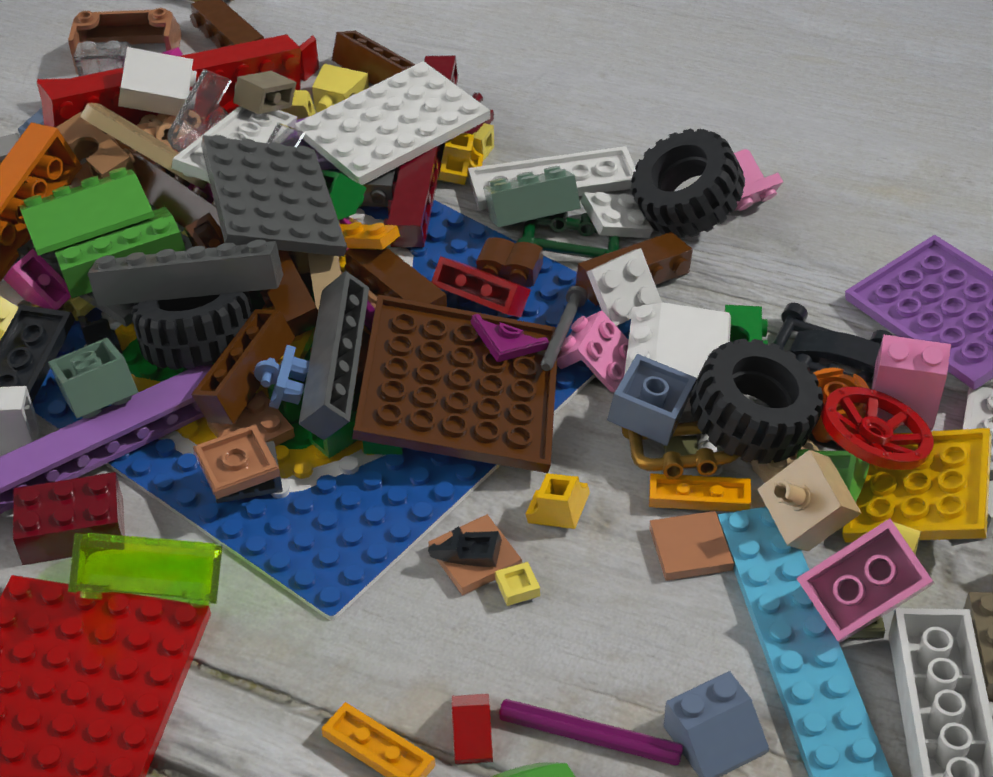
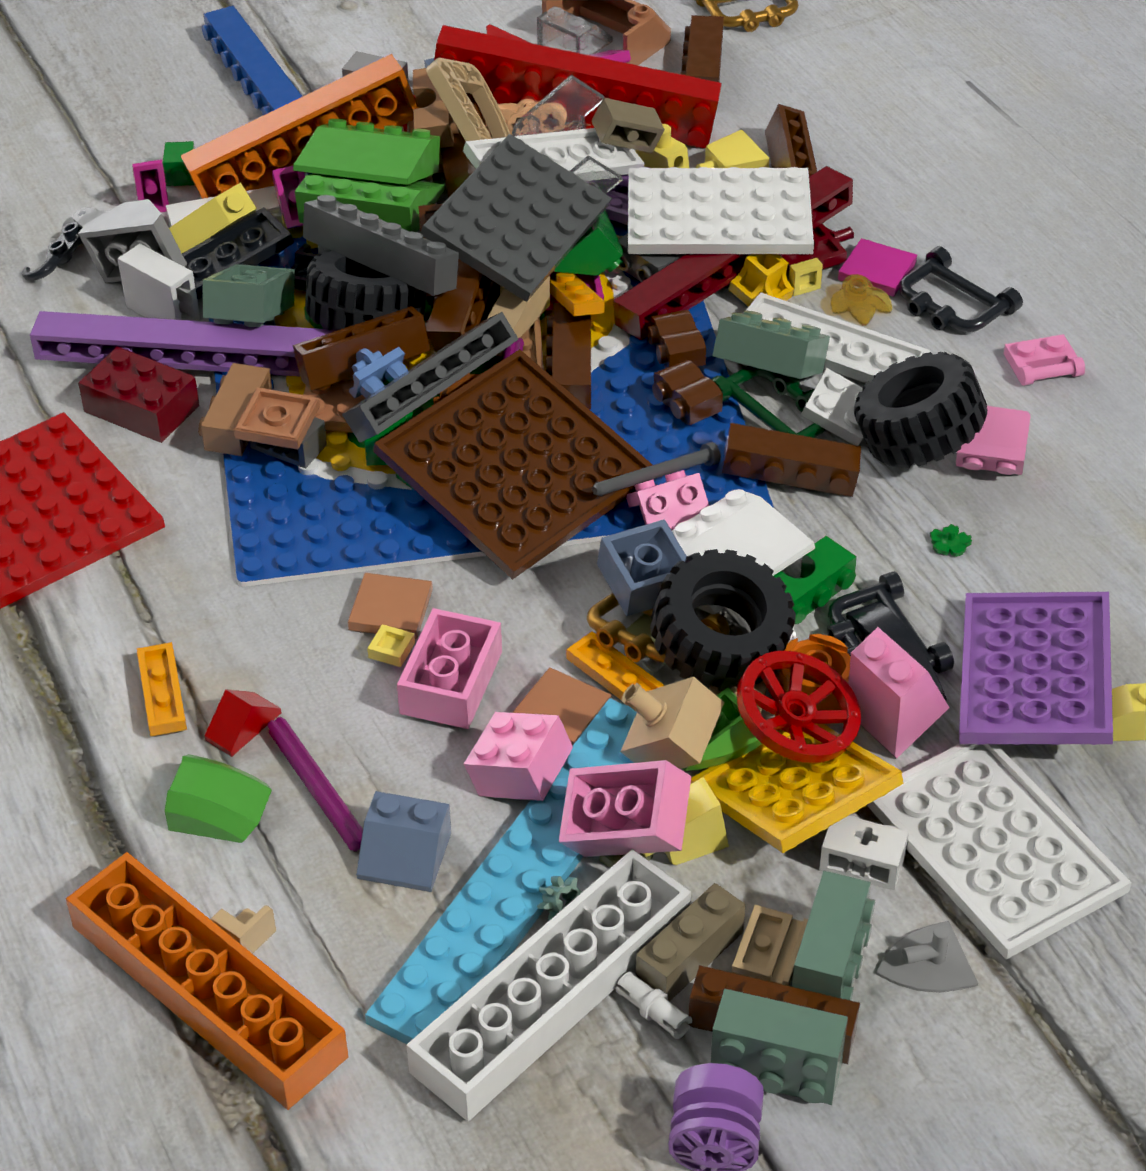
camera: 40 degrees right, 0 degrees up
(145, 567) = (139, 453): clear neon green windscreen -> none
(155, 81) = (535, 65): white brick -> none
(177, 478) = (228, 407): none -> medium nougat brick
(309, 58) = (735, 116): red slope -> none
(458, 230) = (676, 339): none -> reddish brown brick
(469, 548) = (383, 596): black slope -> none
(480, 287) = (631, 397): red brick -> none
(506, 341) = (591, 451): magenta tile -> none
(518, 112) = (880, 264): none -> dark pink tile
(534, 138) = (860, 301): none -> clear yellow plate
(554, 89) = (937, 263): none -> black bar
(558, 501) = (495, 601): yellow brick -> none
(592, 569) = (450, 668): none -> bright pink brick
(623, 285) = (749, 464): white plate -> none
(691, 110) = (1043, 359): none -> bright pink plate
(723, 599) = (518, 756): none -> bright pink brick
(785, 264) = (950, 541): none -> green plant
(877, 684) = (552, 893): none -> sand green gear

